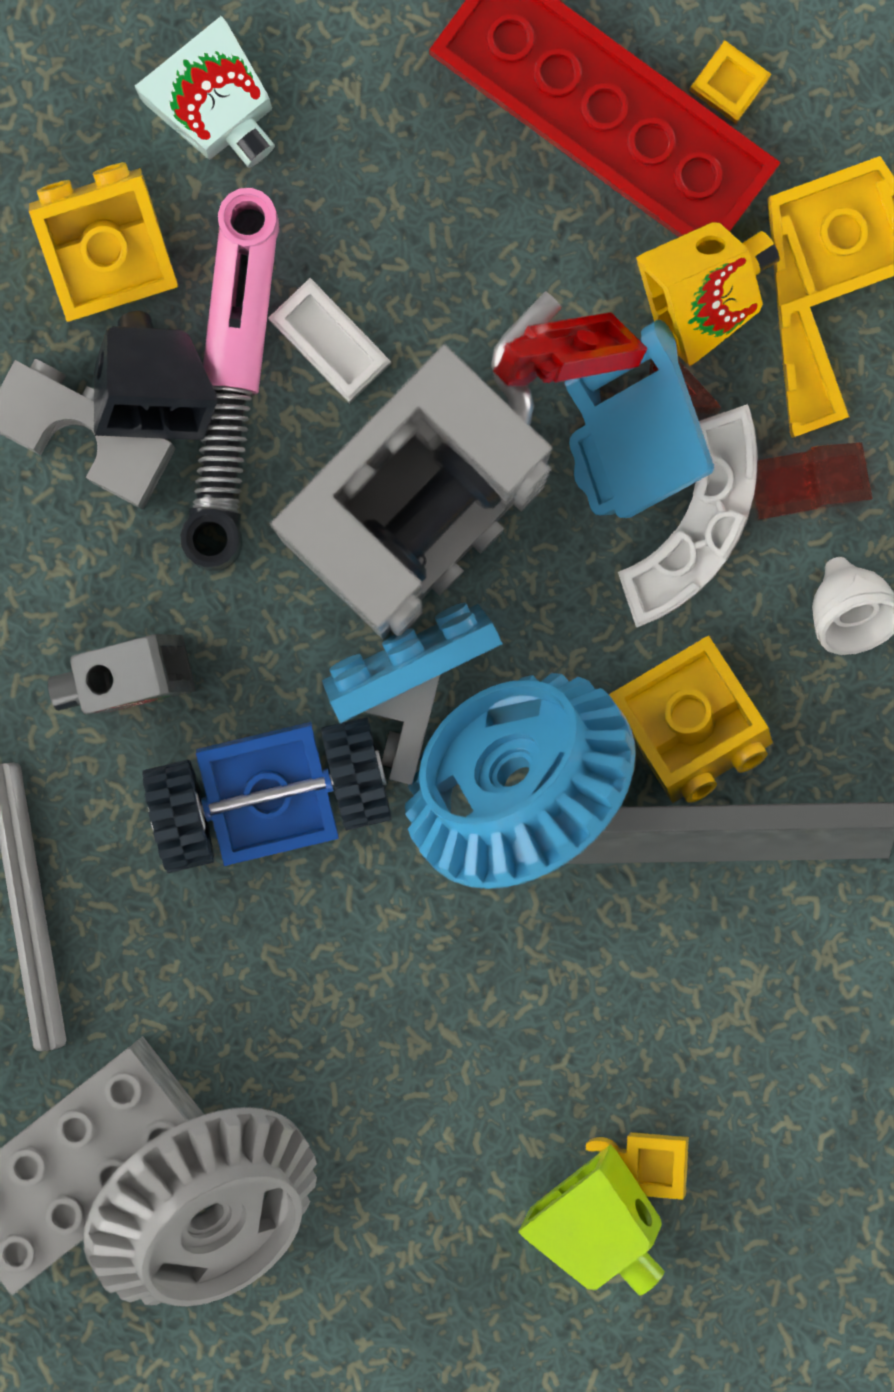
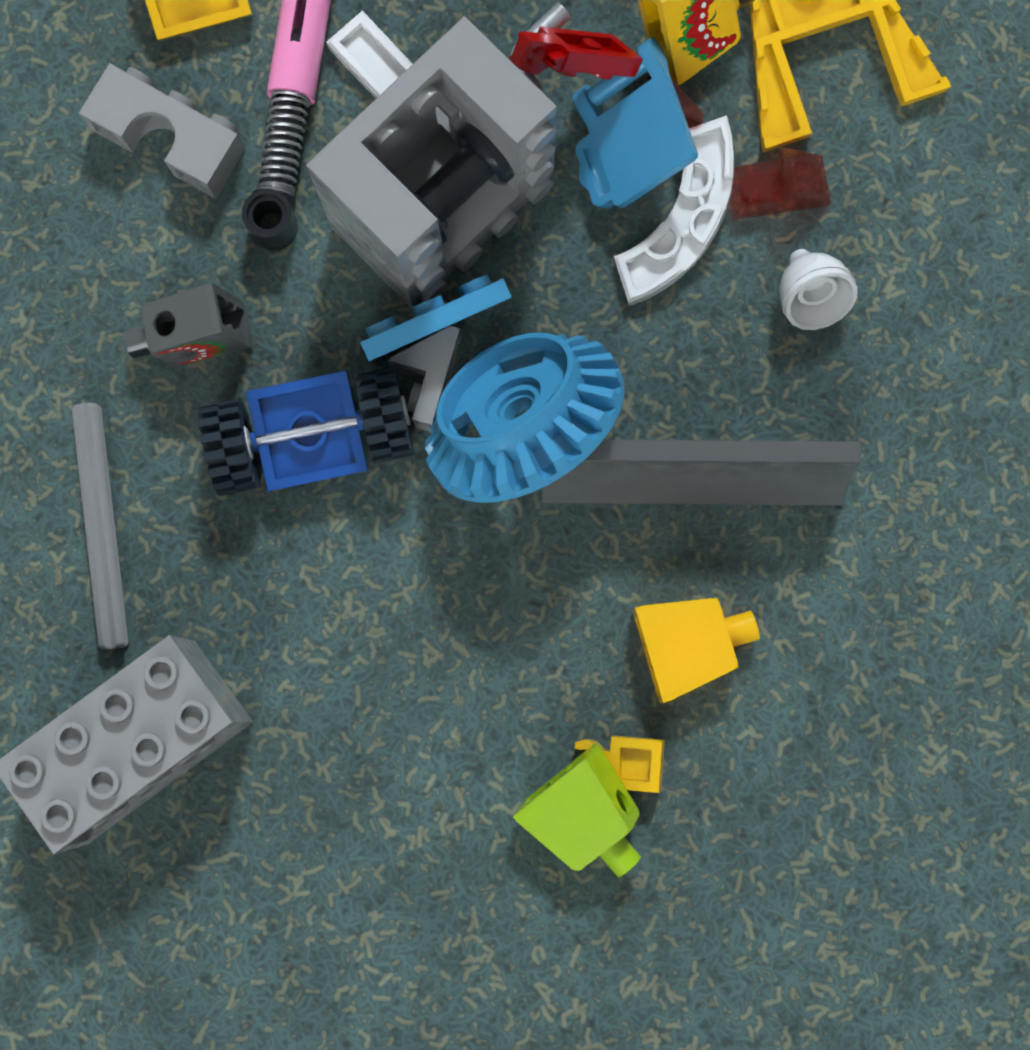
camera: 10 degrees right, 5 degrees down
(144, 1220) = (187, 762): light grey gear -> none
(150, 383) = (223, 86): black torso -> none
(693, 721) = (678, 380): yellow plate -> none
(716, 1027) = (691, 643): none -> yellow torso

